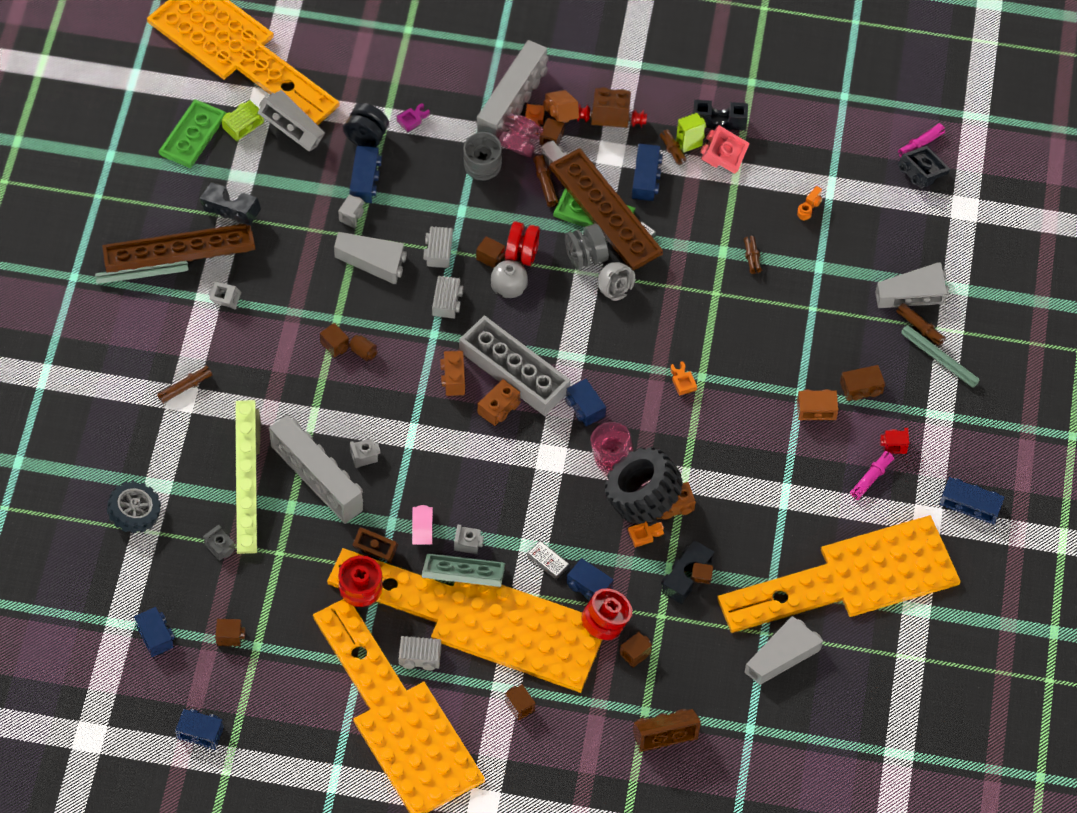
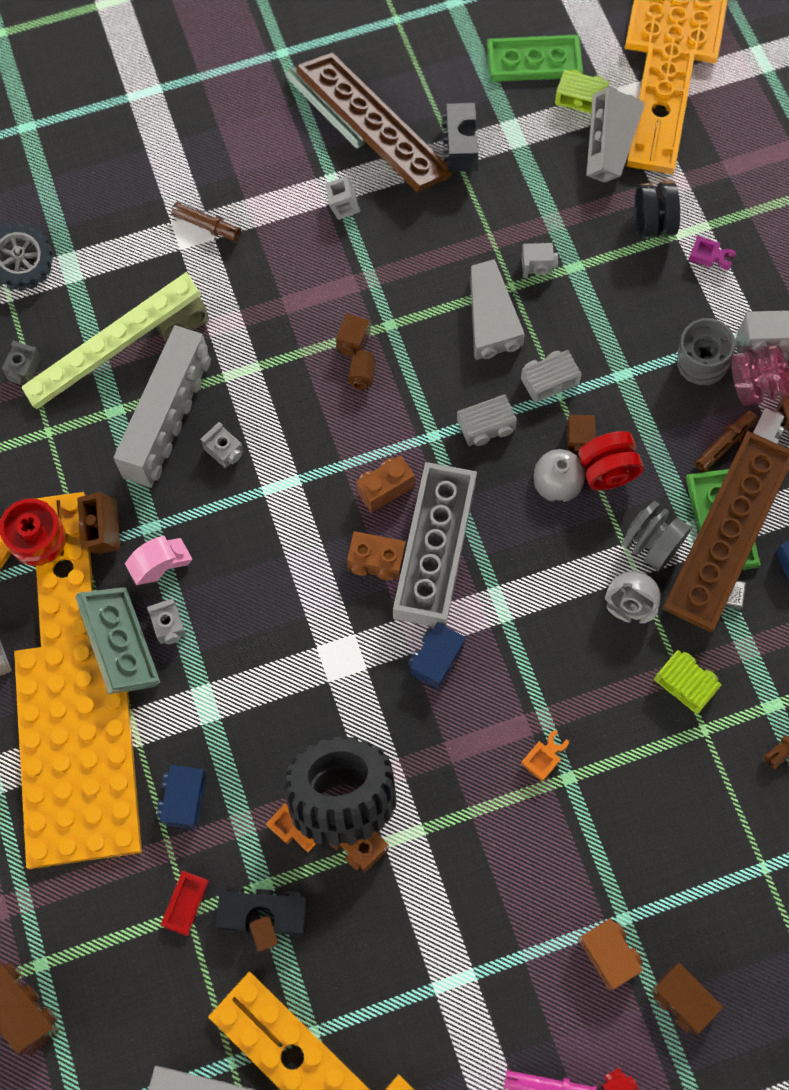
camera: 65 degrees right, 10 degrees up
(365, 173) = (596, 246): dark blue brick -> none
(548, 560) = (192, 730): tile -> none
(606, 614) = (151, 853): red wheel -> none
(609, 444) = (384, 707): clear pink wheel -> none
(636, 649) = (115, 906): reddish brown brick -> none
(655, 613) = (185, 903): none -> red tile
(683, 283) = (688, 681): none -> lime brick

